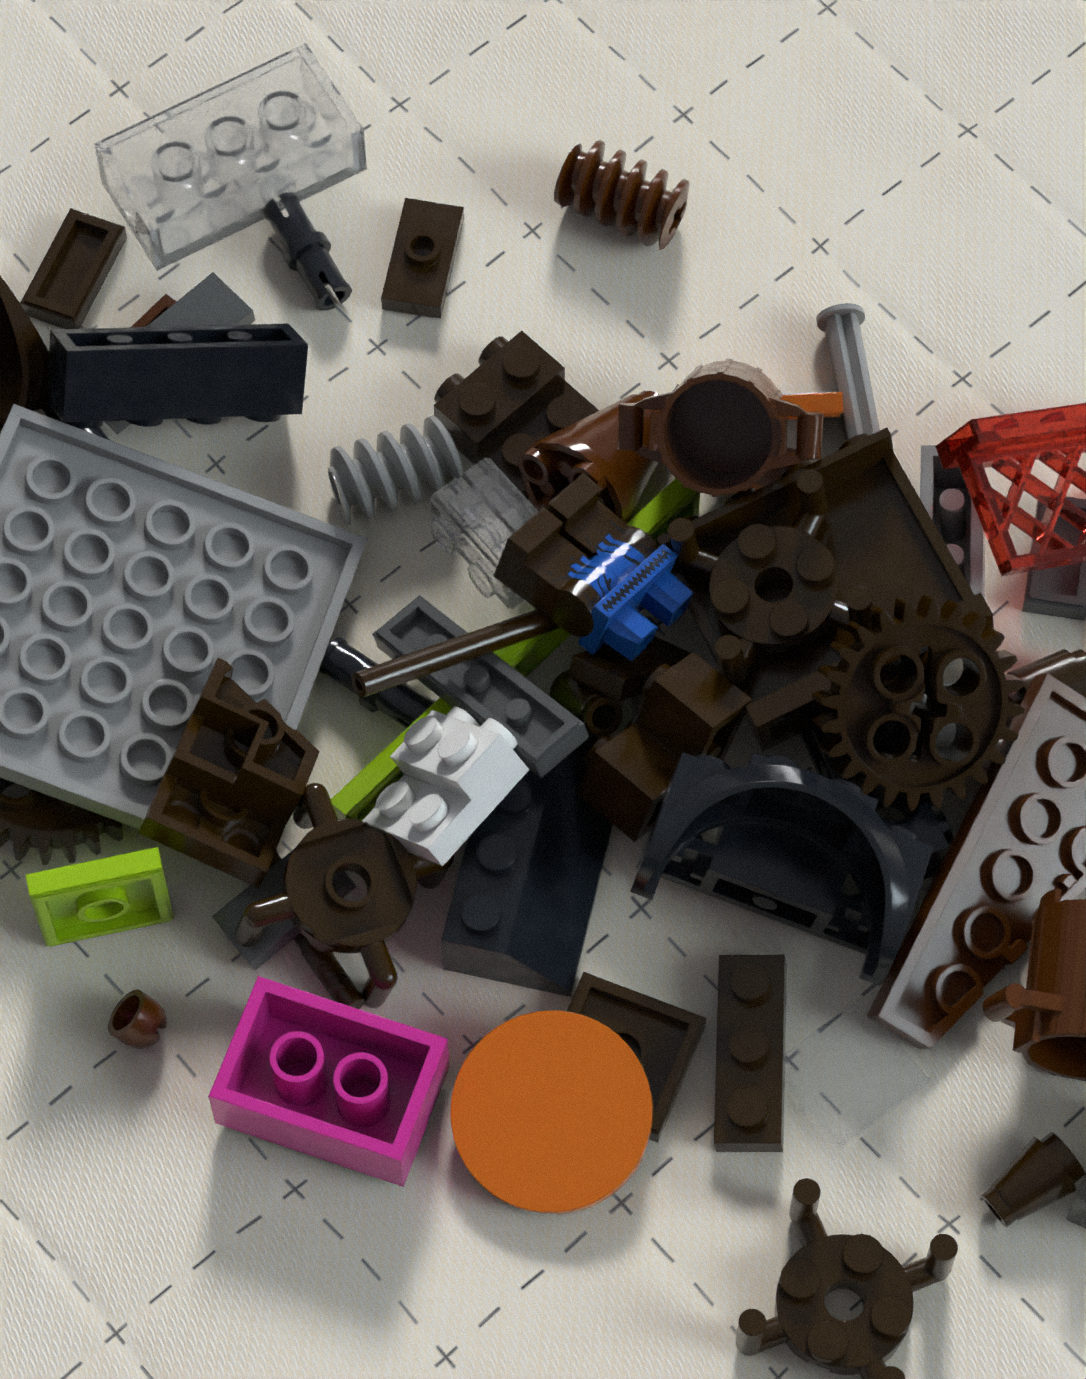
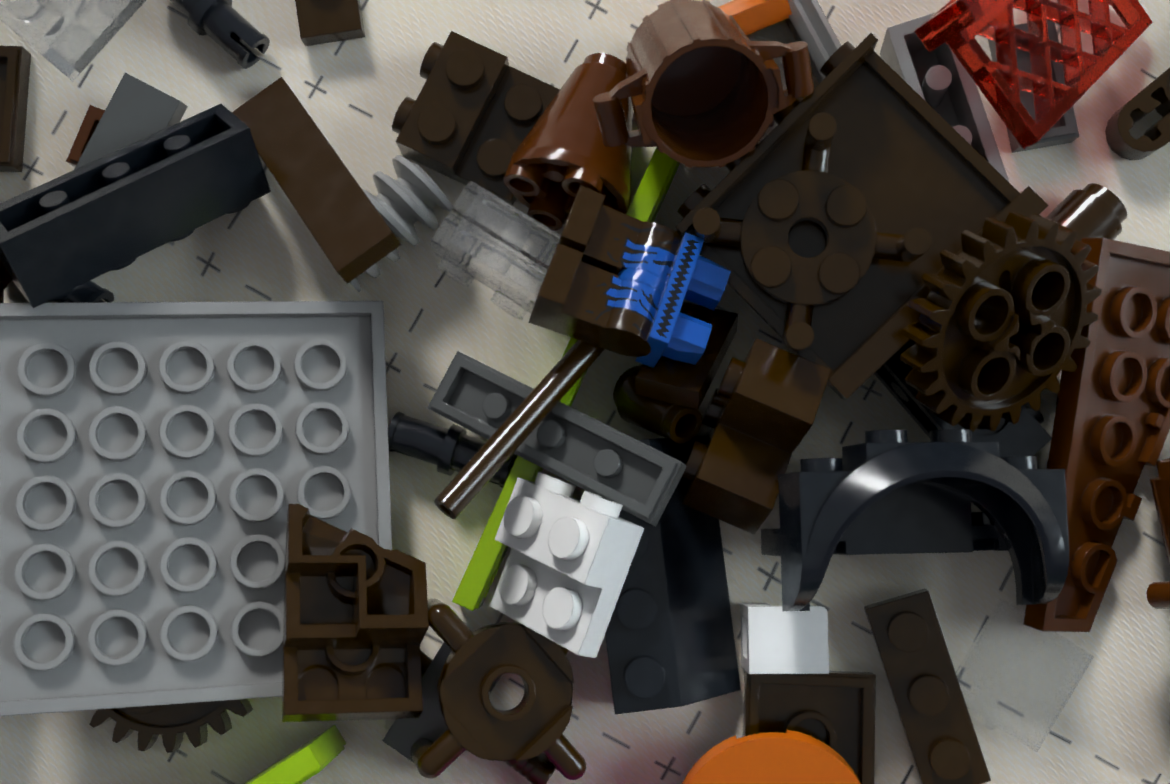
camera: 20 degrees left, 20 degrees up
(350, 411) = (317, 181): none -> dark brown tile
(628, 946) = (783, 640): none -> white panel

